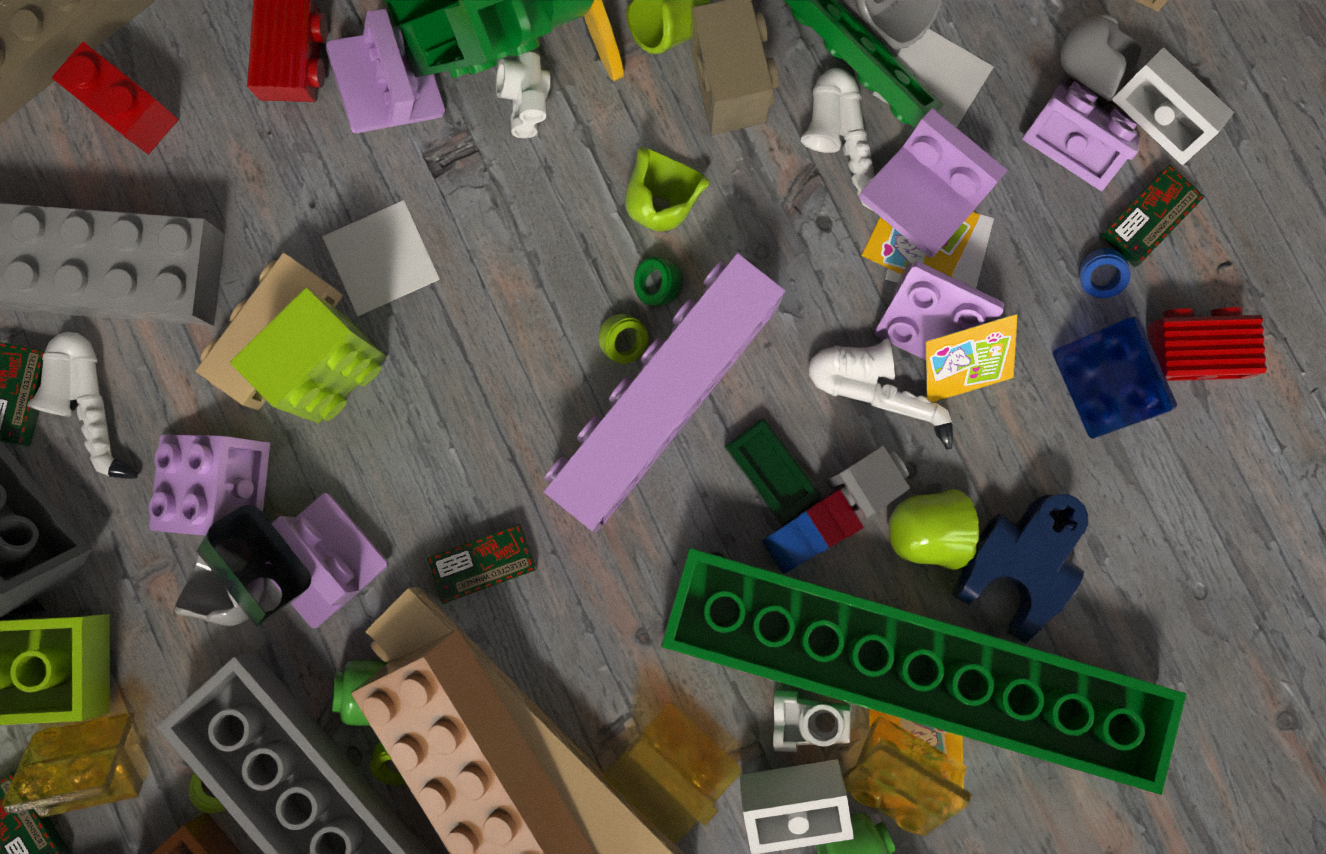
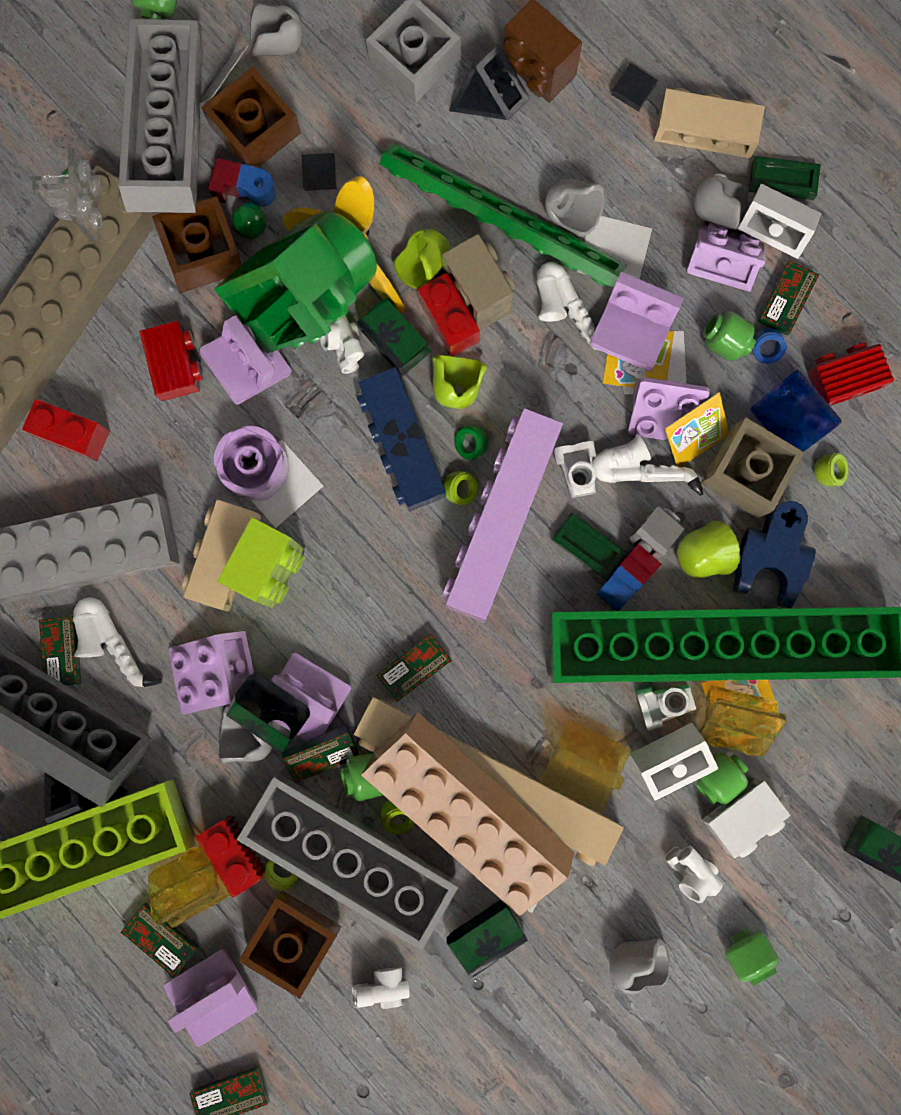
camera: 15 degrees left, 0 degrees up
(144, 756) = (231, 858): none -> red brick
(315, 642) = (319, 754): none -> dark green tile
(327, 198) = (251, 444): none -> lavender brick
(561, 248) = (402, 440): none -> dark blue brick
(595, 105) = (393, 336): none -> dark green piece
(679, 98) = (448, 315): none -> red brick
(794, 350) = (578, 460): none -> white plate
(1031, 433) = (752, 468): none -> dark tan brick
(1055, 242) = (729, 335): none -> bright green head
(1129, 467) = (824, 469): none -> lime piece
(1203, 51) = (785, 176): none -> dark green tile

